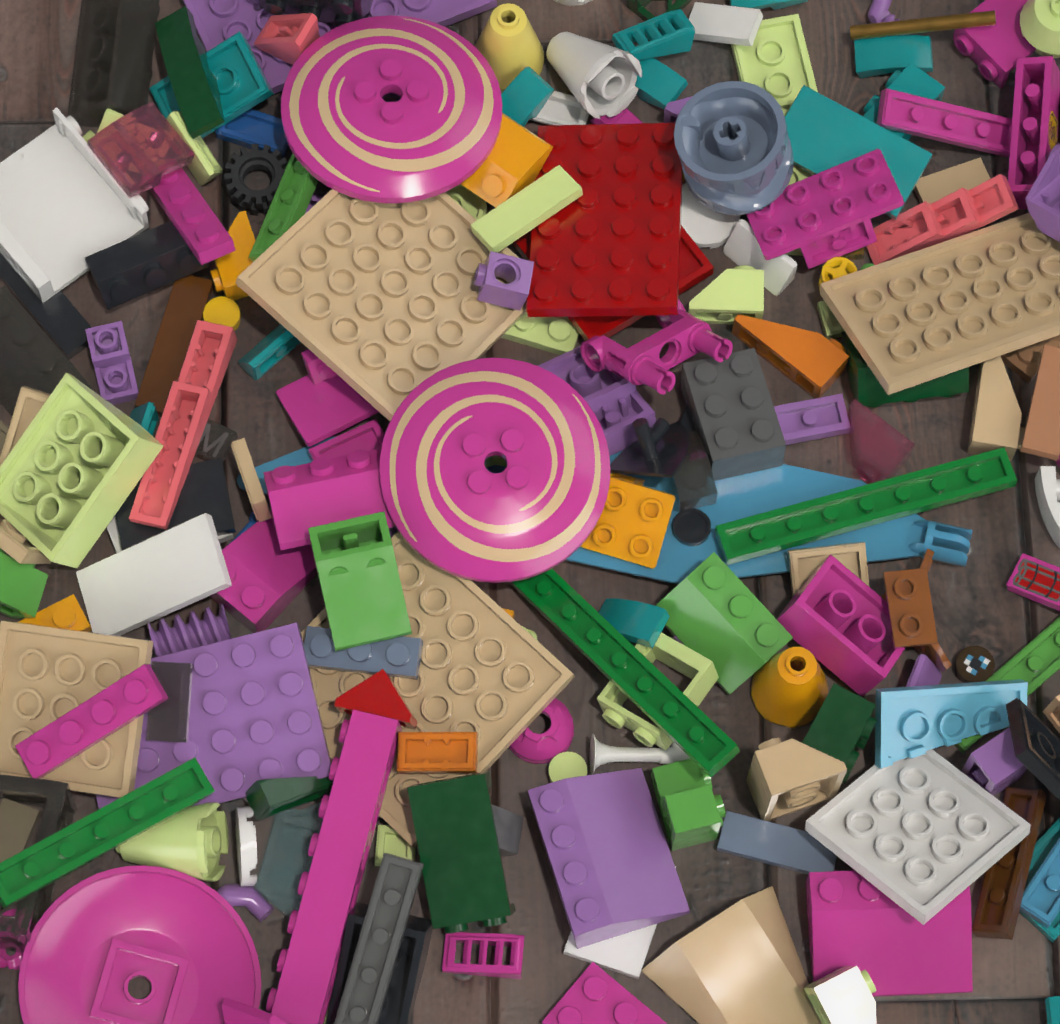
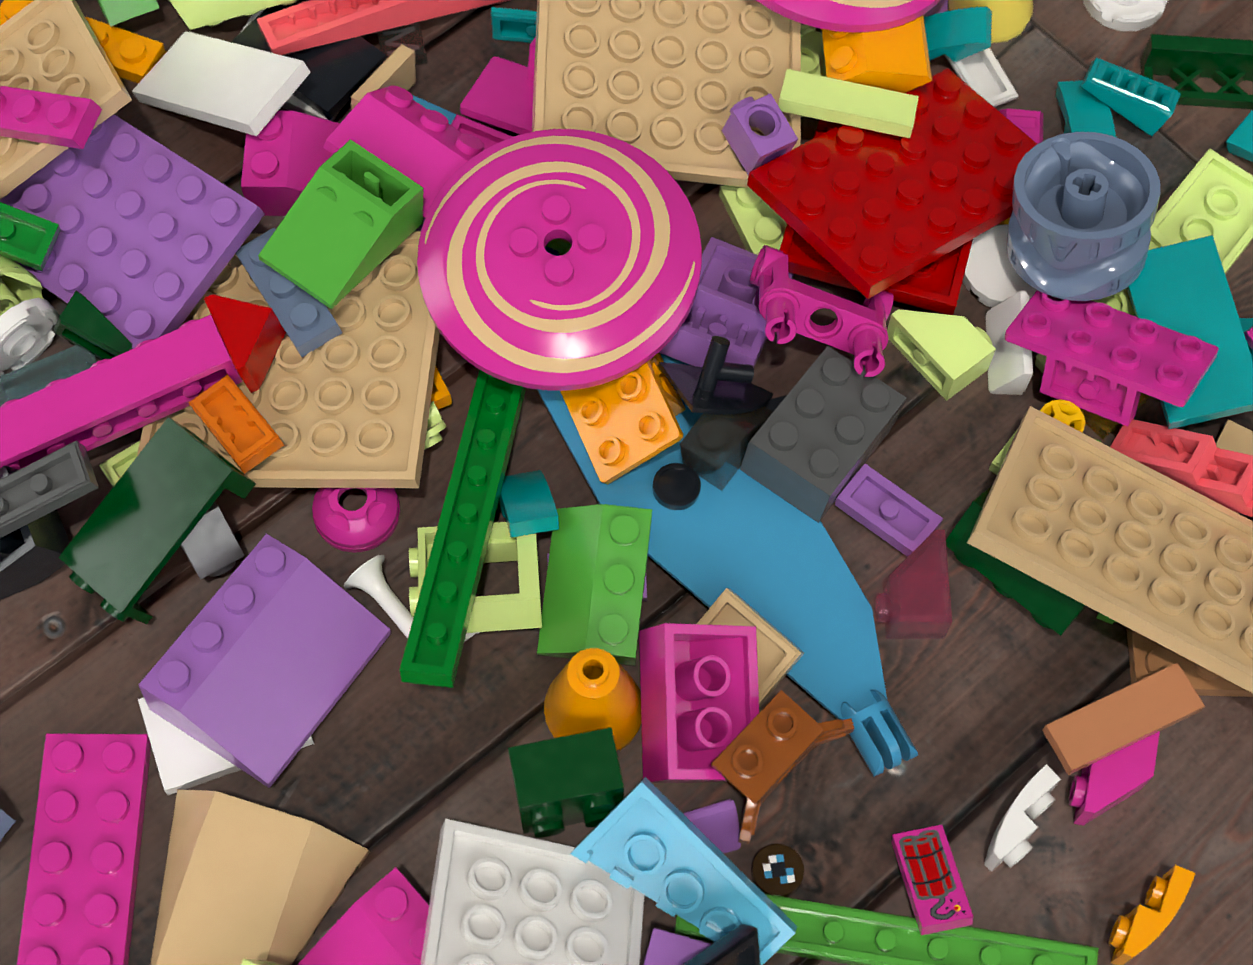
camera: 50 degrees right, 5 degrees down
(171, 718) = (96, 166): clear smoke tile -> none
(190, 635) = (196, 146): medium lavender piece -> none
(511, 971) = (95, 661): dark pink slope -> none
(566, 766) = (334, 560): yellowish green tile -> none
(595, 73) = (1042, 72): white cone -> none
(687, 804) = (371, 701): bright green brick -> none
(725, 23) = (1206, 140): white tile -> none
(774, 844) = (409, 811): sand blue tile -> none
(792, 777) = (470, 764): tan slope -> none
(797, 353) = (946, 448): orange slope -> none
(865, 506) = (848, 629): green plate -> none
(995, 412) = (1061, 678): tan slope -> none

